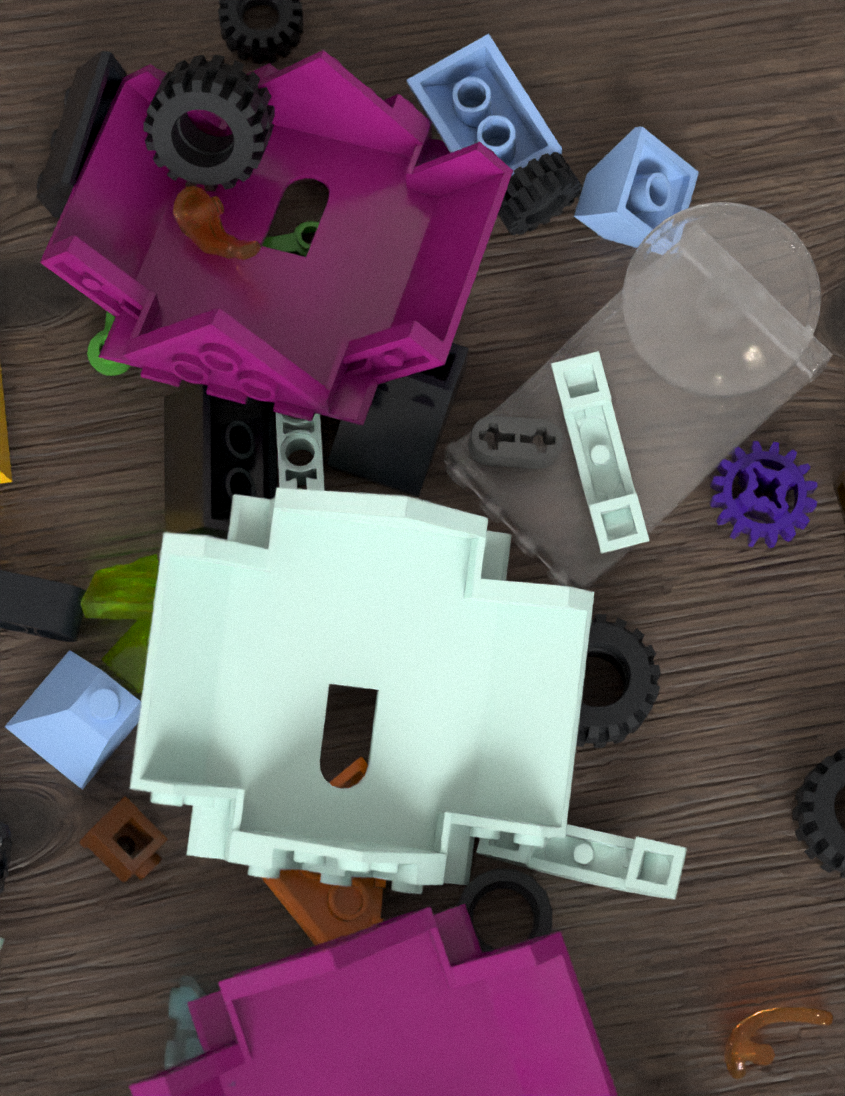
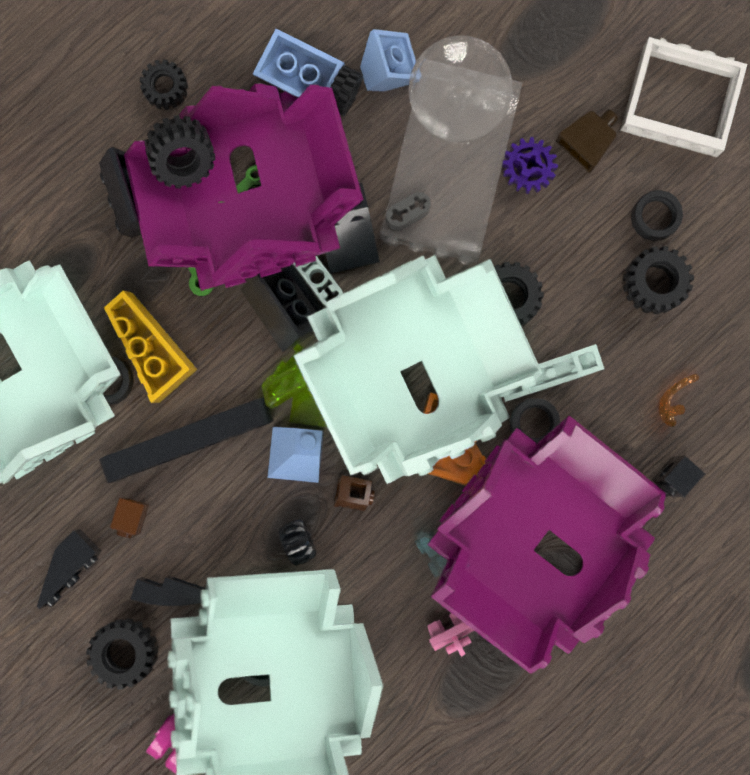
camera: 25 degrees left, 10 degrees up
(200, 221) = (205, 200): clear orange piece -> none
(599, 452) = (448, 193): light aqua slope -> none

